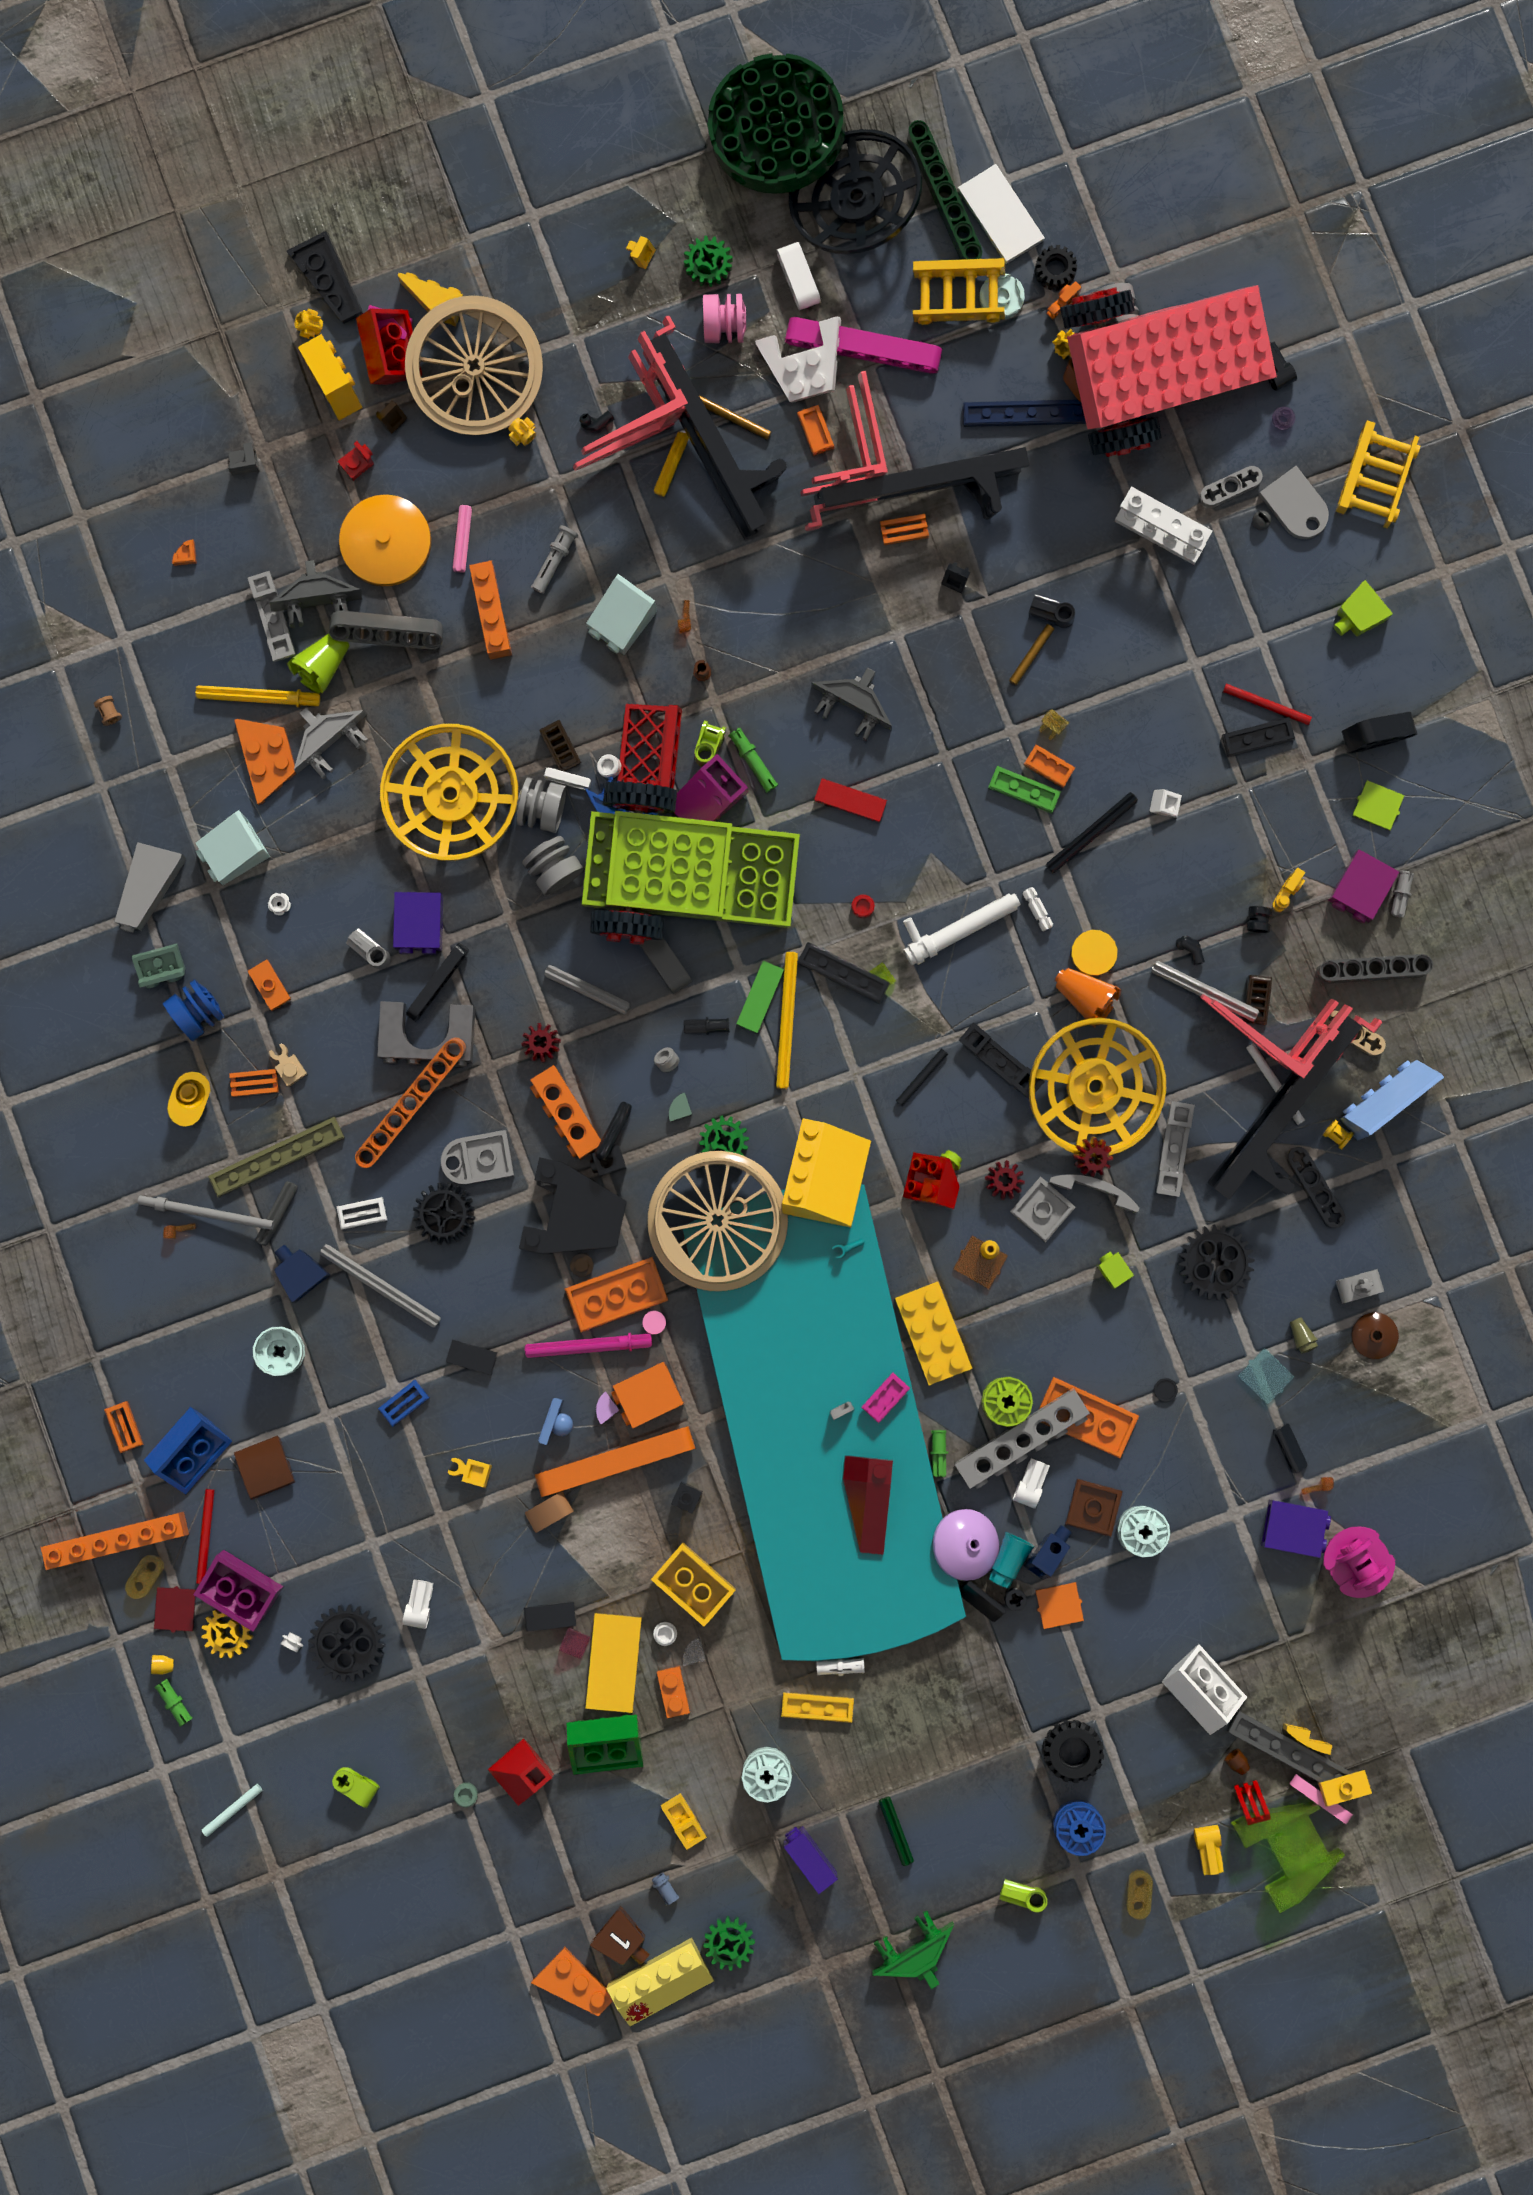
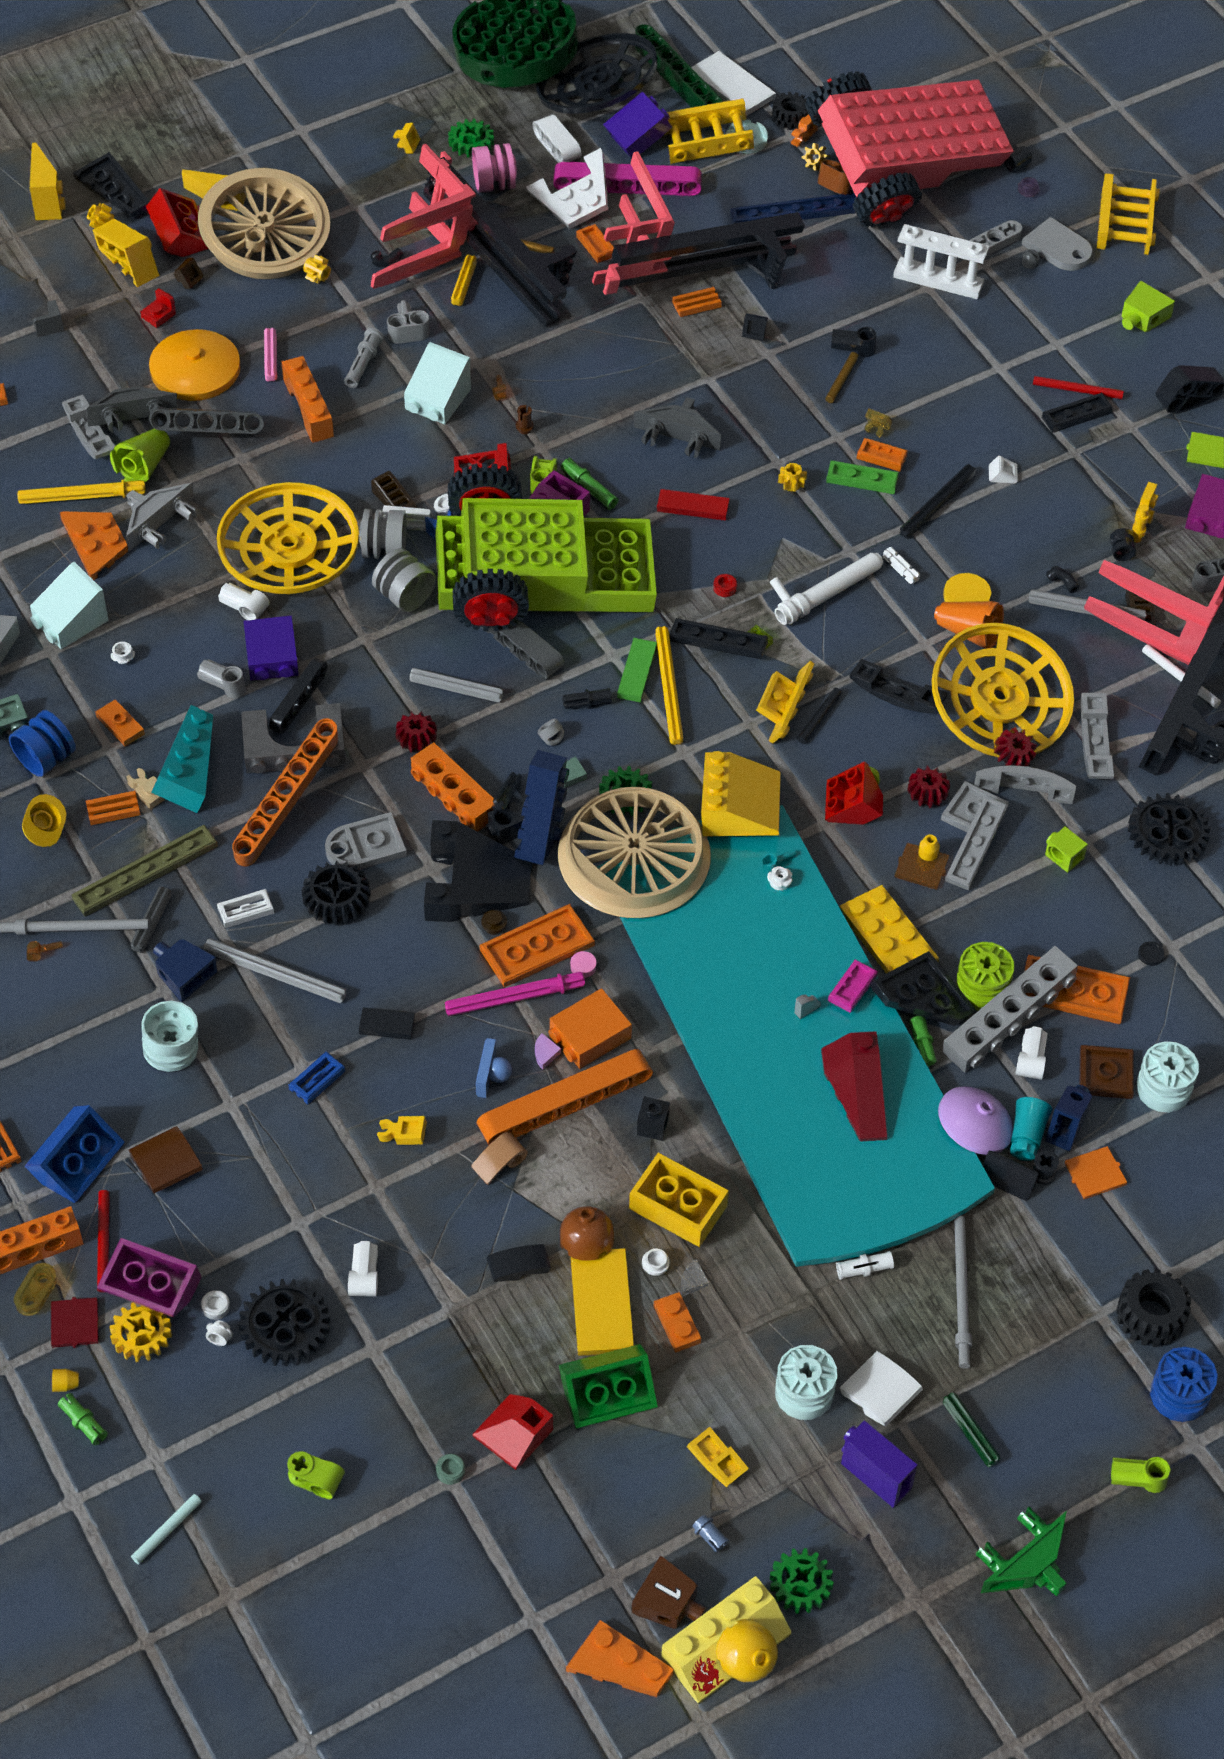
camera: 15 degrees left, 30 degrees down
(252, 283) = (45, 187): none -> yellow slope
(292, 1612) = (215, 1305): none -> white tile
(324, 1050) = (186, 766): none -> teal wedge
(403, 862) = (248, 604): none -> white piece
(574, 1643) = (551, 1286): clear pink slope -> none
(604, 518) = (407, 324): none -> light grey beam
(610, 1602) = (586, 1233): none -> dark orange cylinder
(638, 1173) = (542, 807): none -> dark blue wedge
(674, 2002) = (747, 1651): none -> yellow cylinder
(817, 1707) = (848, 1314): yellow tile -> none
(829, 1783) = (881, 1388): none -> white slope
(849, 1274) = (780, 883): none -> white plate
(886, 276) = (638, 124): none -> dark purple brick
(890, 1056) = (781, 699): none -> yellow bracket
(908, 1749) = (963, 1338): none -> light grey bar
(949, 1407) = (924, 990): none -> black plate
(959, 780) = (792, 477): none -> yellow gear
(1034, 1250) = (976, 843): none -> light grey tile

